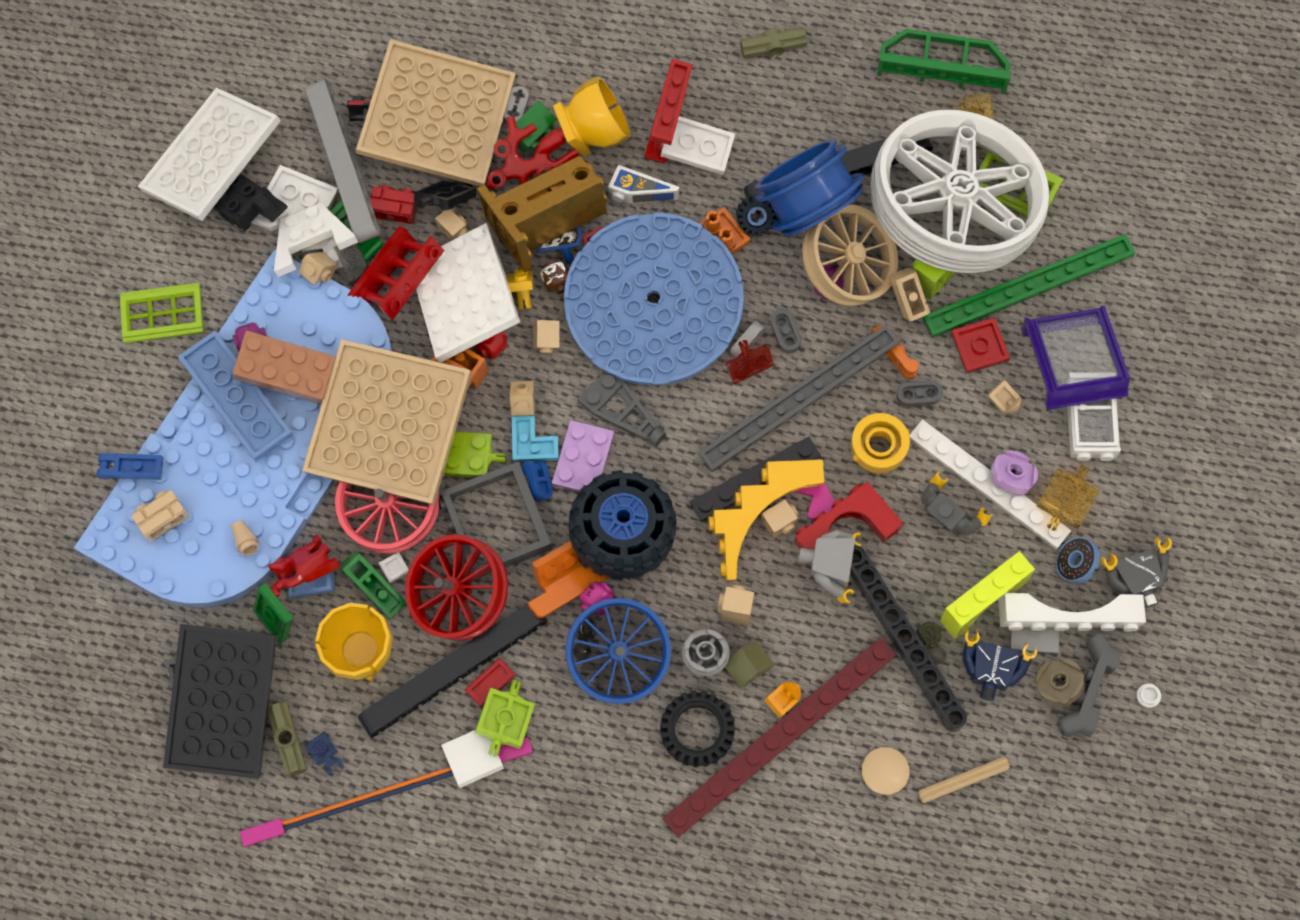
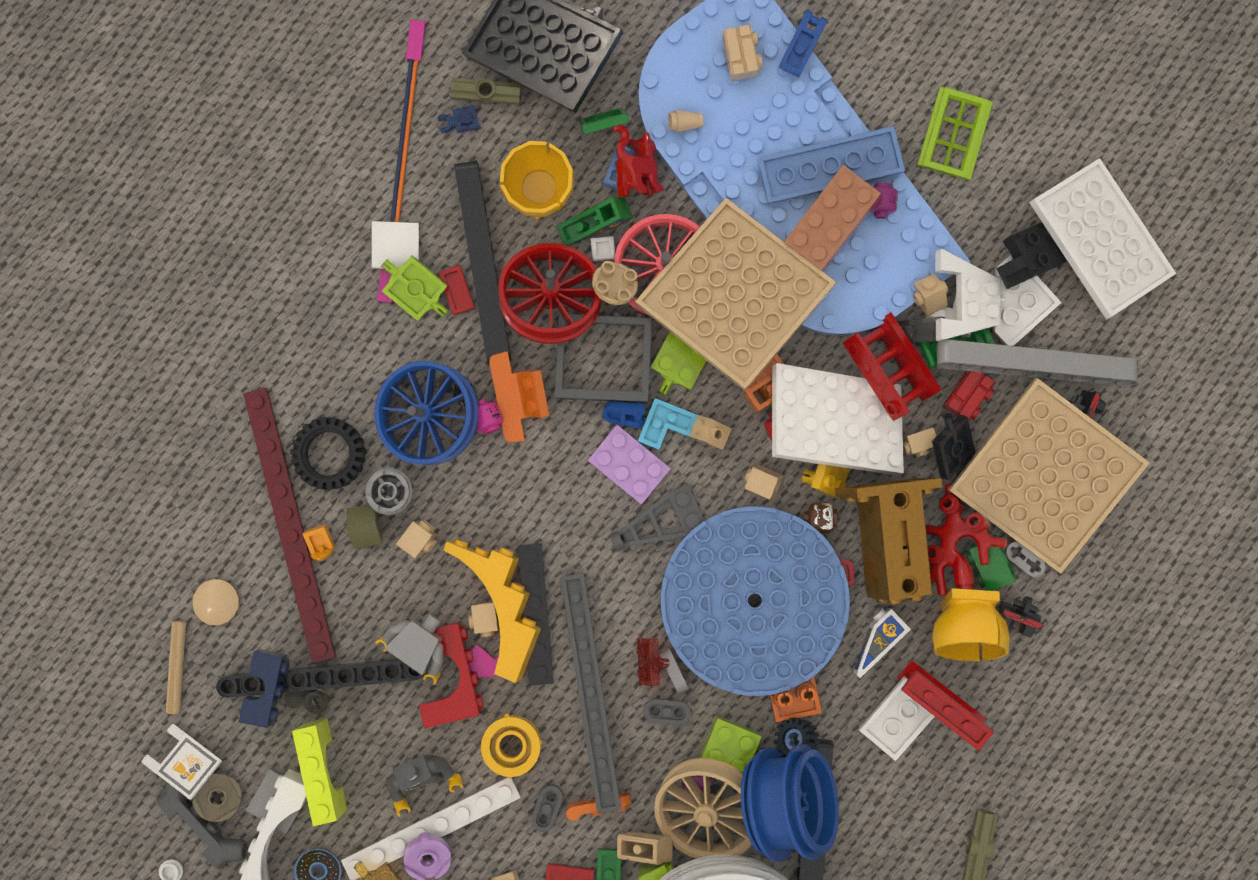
camera: 110 degrees right, 15 degrees up
(422, 530) = (615, 283): none -> tan dish
(562, 85) = (1022, 612): none -> black hips
(564, 242) = (850, 542): shield -> none
(622, 525) = (549, 443): black wheel -> none
(787, 267) = (730, 743): none -> lime brick
(958, 670) = (270, 668): none -> dark blue arch
(994, 665) = (258, 748): dark blue torso -> none
(1045, 721) = (186, 765): none -> white flag

